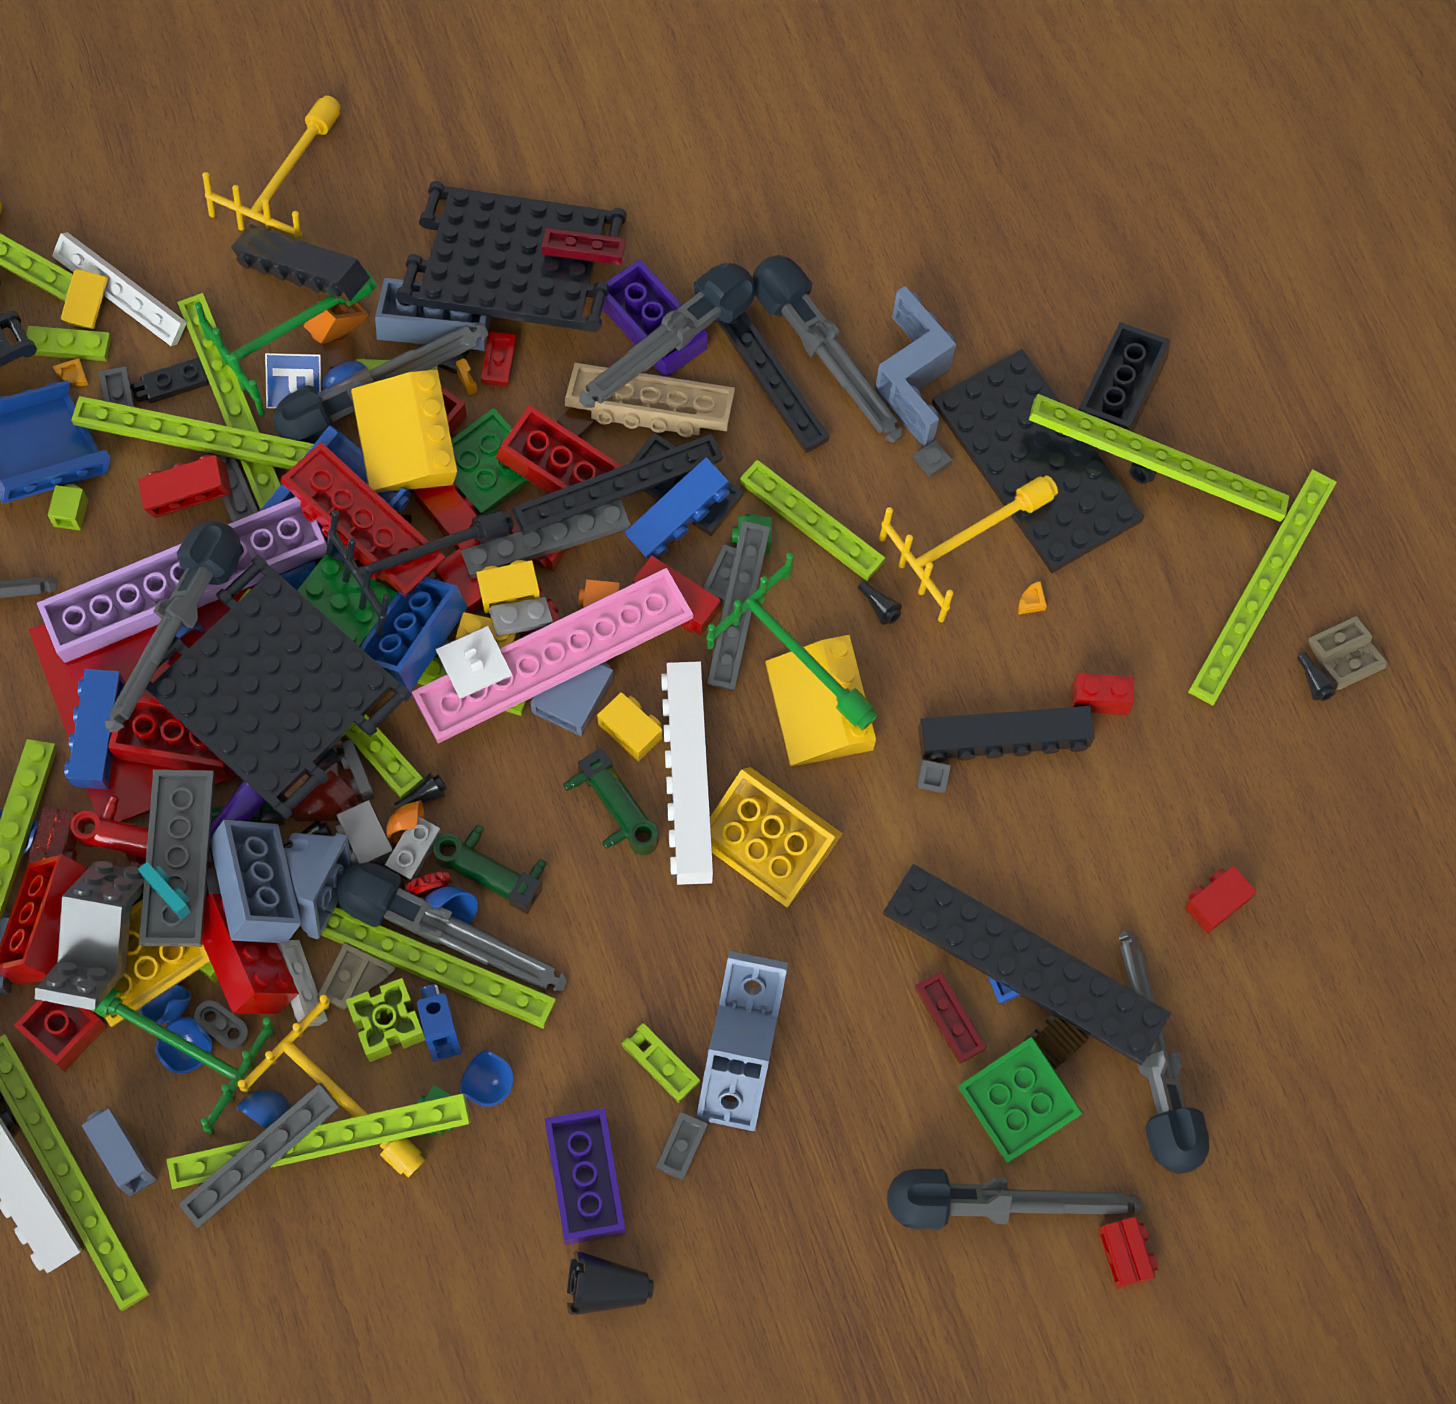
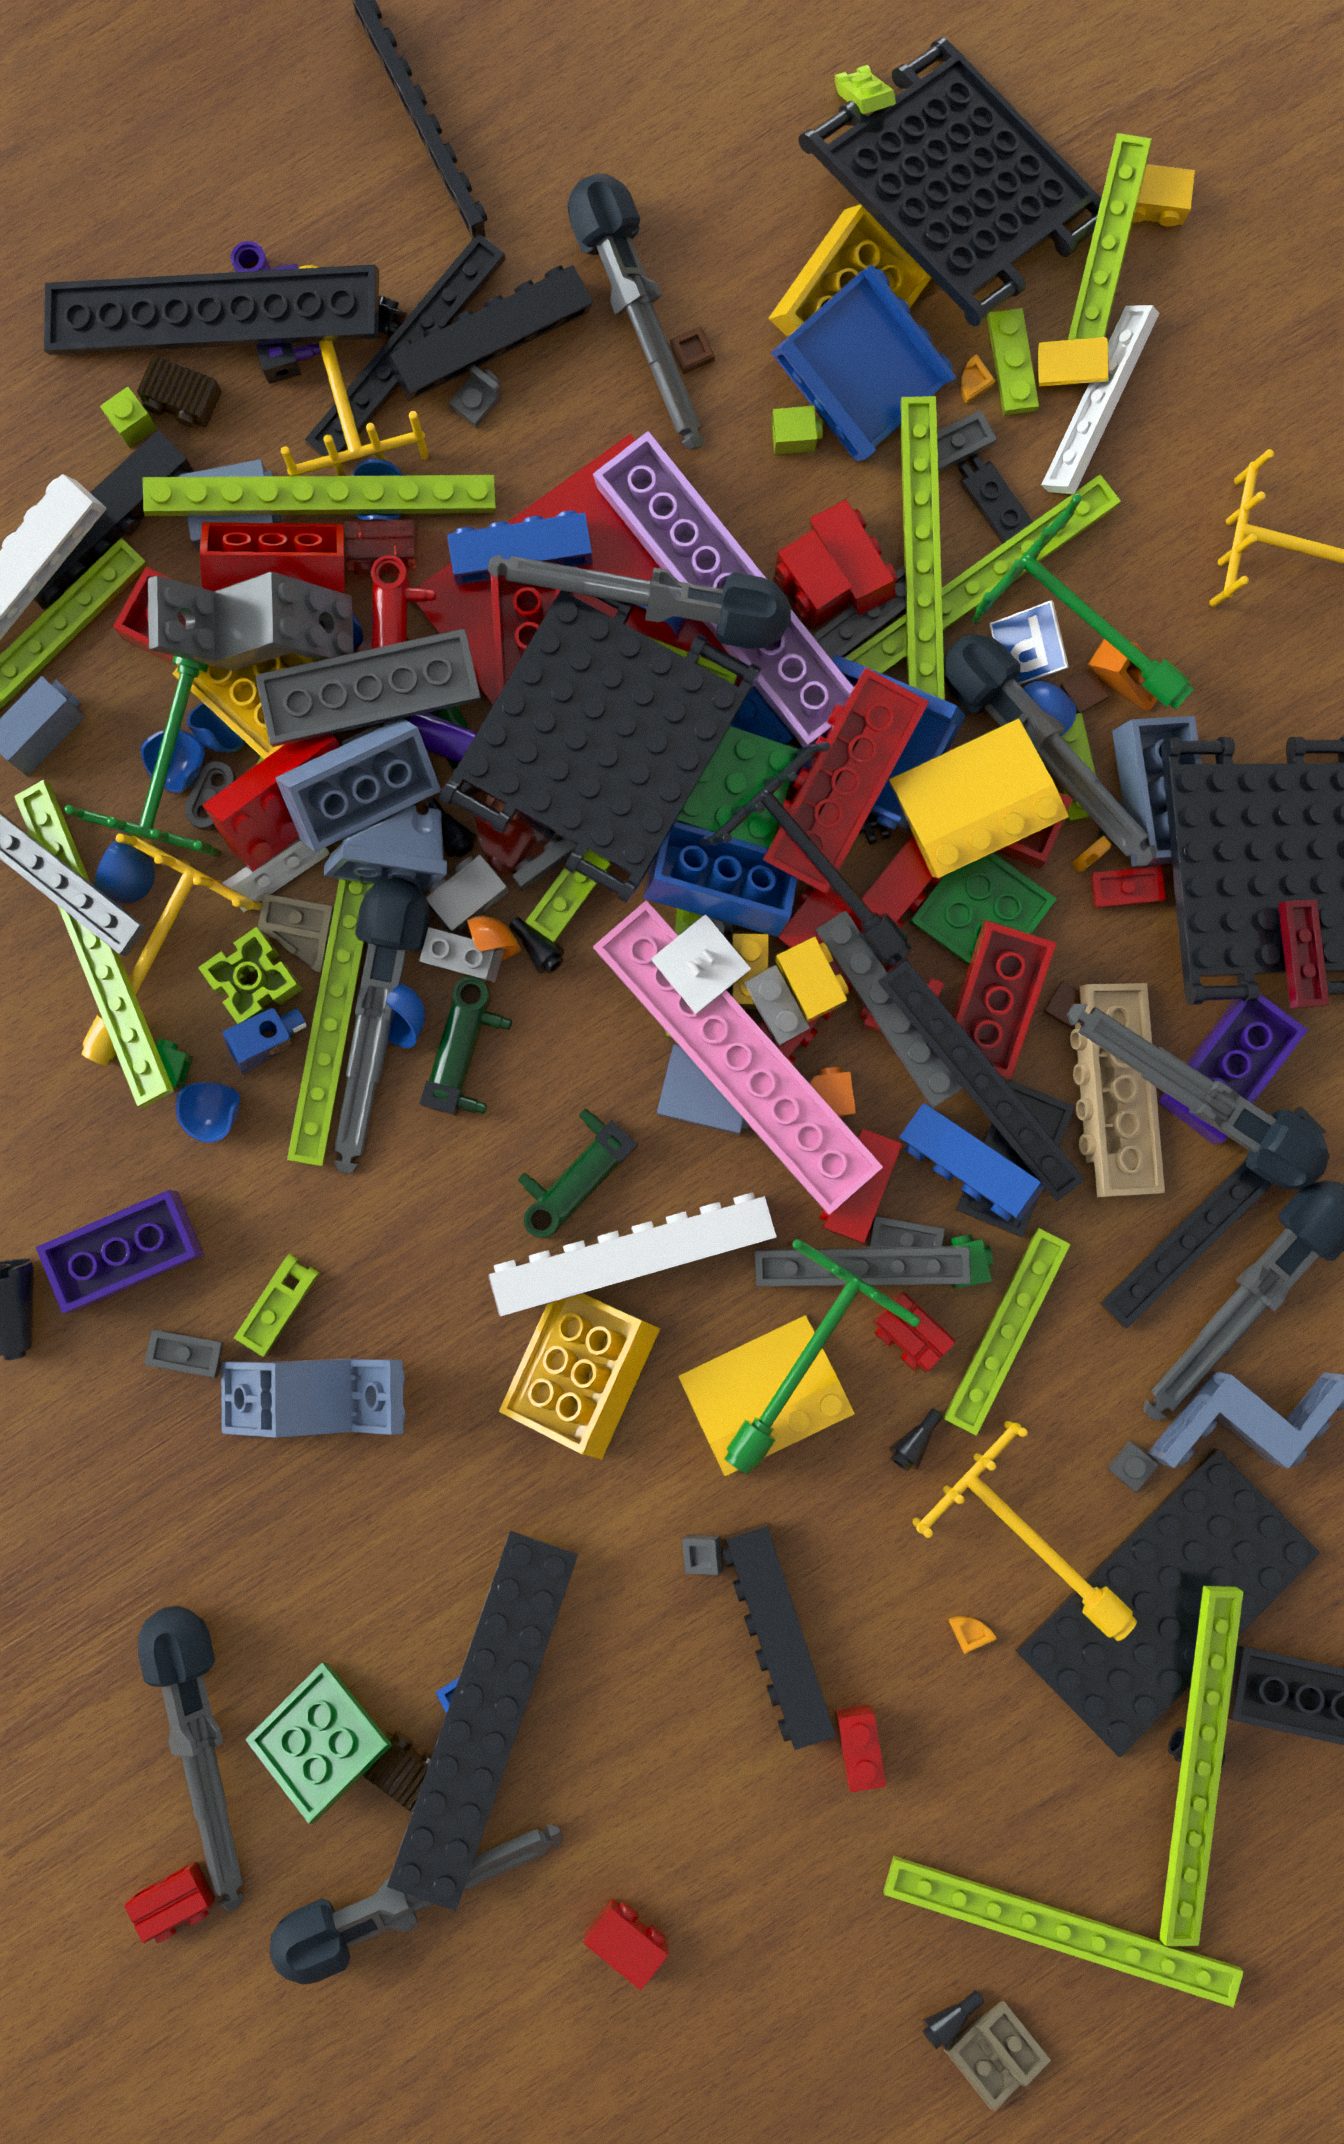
camera: 80 degrees right, 15 degrees up
(174, 898) = (309, 698): teal plate -> none
(189, 509) = (812, 580): none -> red brick
(300, 263) = (1182, 606): black brick -> none
(425, 884) = (422, 983): red gear -> none
(630, 726) = (678, 1170): yellow brick -> none
(806, 582) = (921, 1344): none -> red brick
(950, 1017) = (405, 1637): dark red plate -> none

